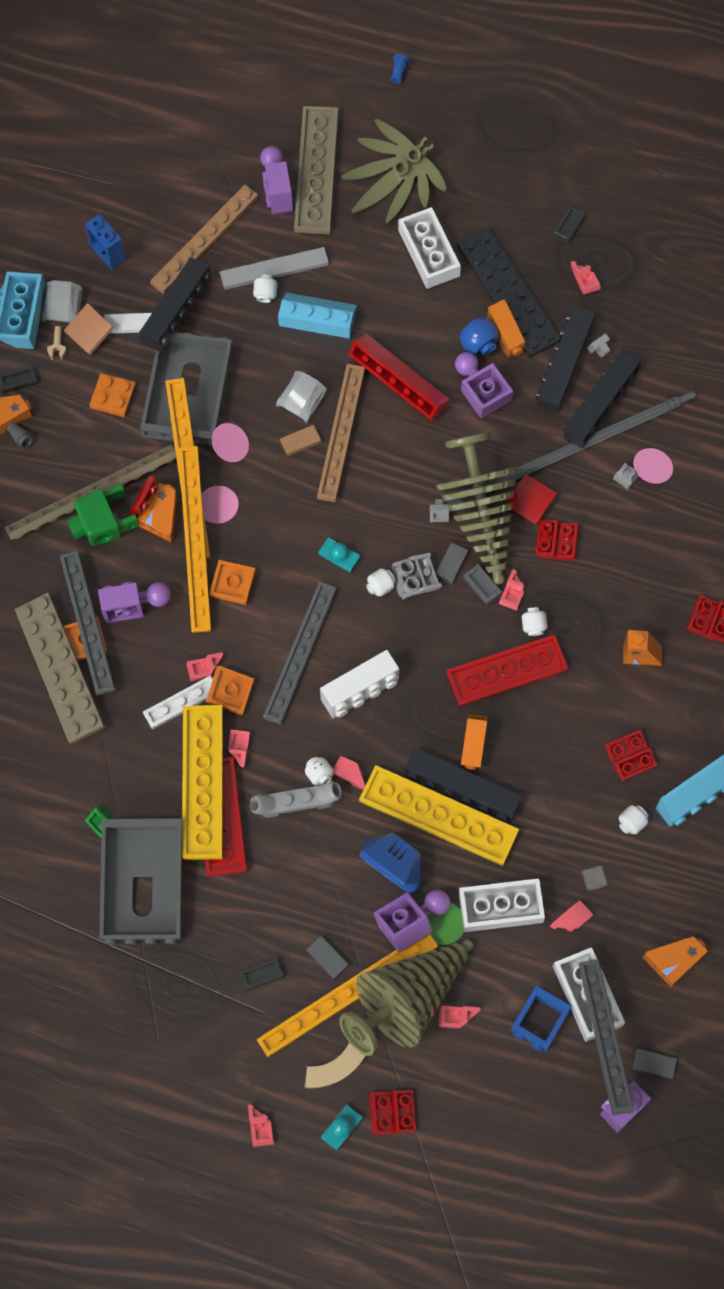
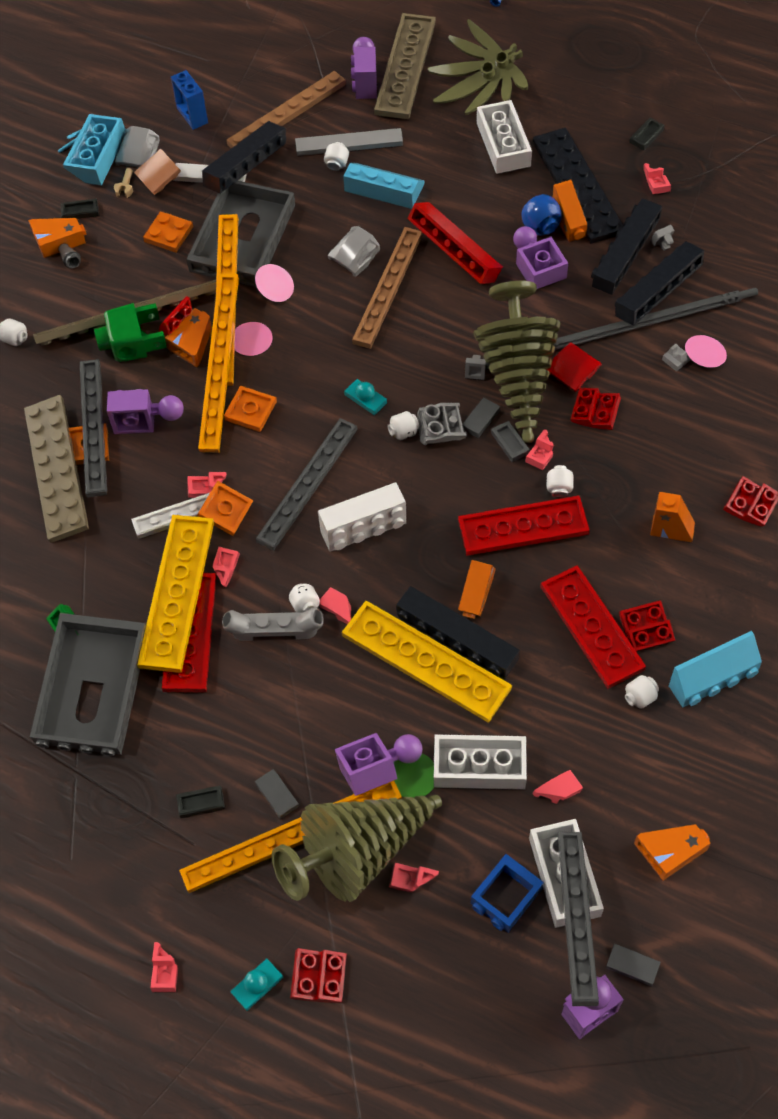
camera: 10 degrees right, 10 degrees down
(300, 440) = (345, 290): medium nougat tile -> none
(335, 1070) = (264, 917): tan tile -> none
(394, 860) = (368, 698): blue helmet -> none
(582, 762) = (593, 627): none -> red plate
(594, 878) = (589, 749): clear tile -> none

